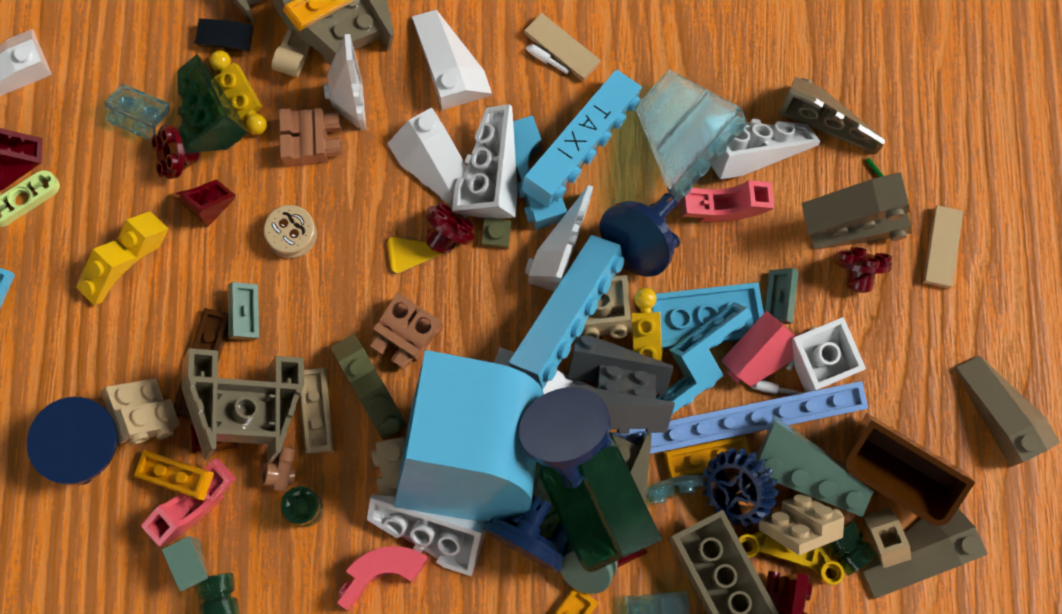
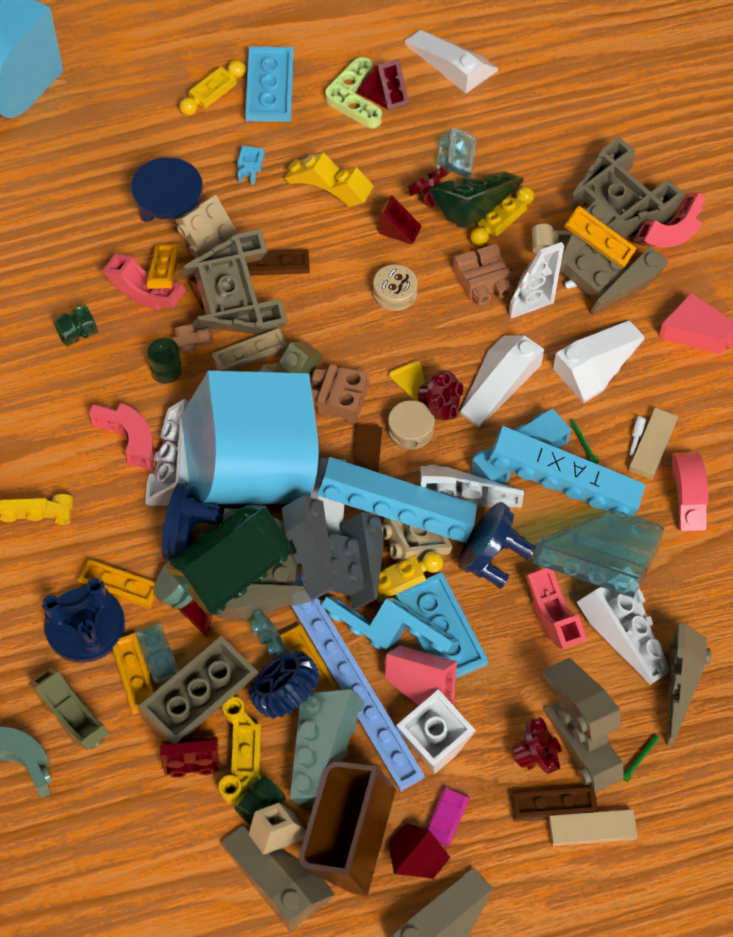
camera: 75 degrees right, 15 degrees down
(57, 335) = (249, 162): none -> medium azure plate
(186, 562) = (97, 292): sand green slope -> none
(224, 34) = (548, 191): black slope -> none
(243, 311) = (314, 274): sand green plate -> none
(467, 270) = (411, 425): none -> tan head
(488, 326) = (368, 447): none -> reddish brown tile
(490, 176) = (488, 413): white wedge -> none
(496, 233) = (454, 439): olive plate -> none
(562, 109) = (592, 458): none -> green piece
(565, 430) = (274, 491): dark blue piece -> none
(628, 27) = (692, 490): none -> coral arch
(773, 388) = (392, 702): white piece -> none
(782, 294) = (476, 686): sand green plate -> none
(804, 524) = (268, 751): tan plate -> none
(899, 374) = (447, 815): none -> dark pink tile
(911, 273) = (551, 802): none -> reddish brown tile
(933, 416) = (416, 853): none -> dark red slope

